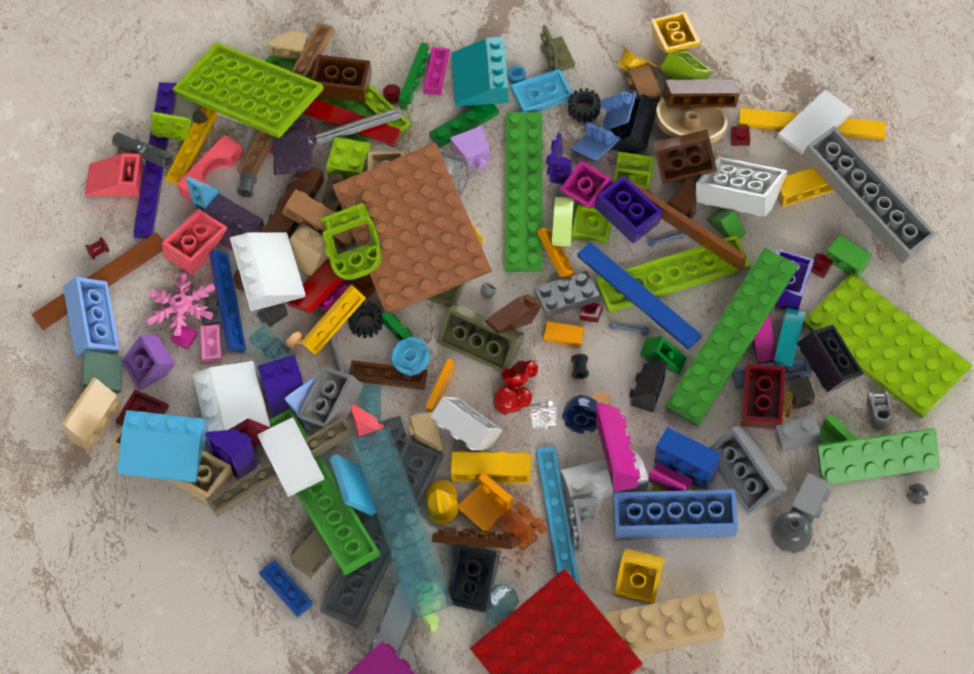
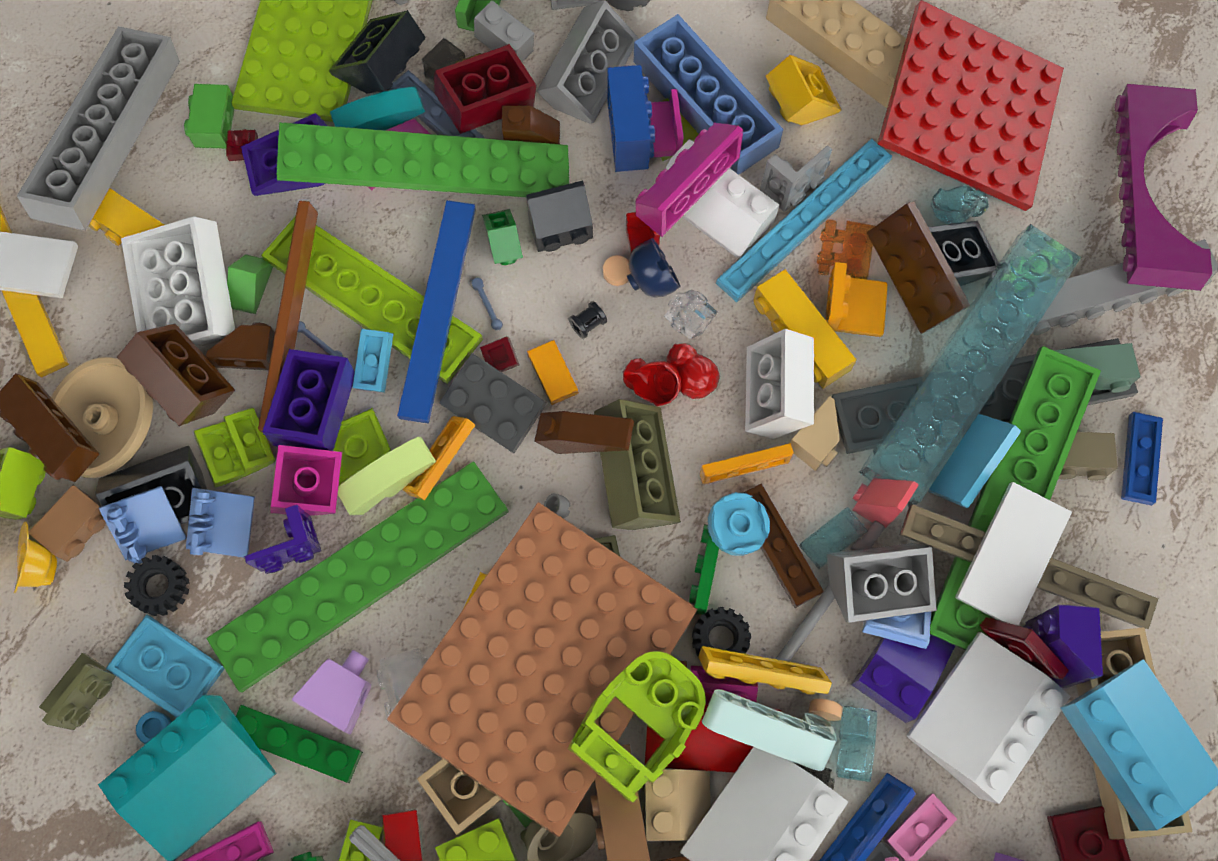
camera: 130 degrees left, 10 degrees up
(302, 298) = (797, 740): none -> light aqua beam
(349, 589) = (1116, 364): none -> sand green slope
(397, 429) = (843, 482): dark grey plate -> none
(442, 502) = (888, 358): yellow piece -> none
(632, 252) = (373, 360): none -> medium azure plate
(723, 410) = (529, 125): none -> reddish brown slope
(740, 136) = (86, 347): dark red plate -> none

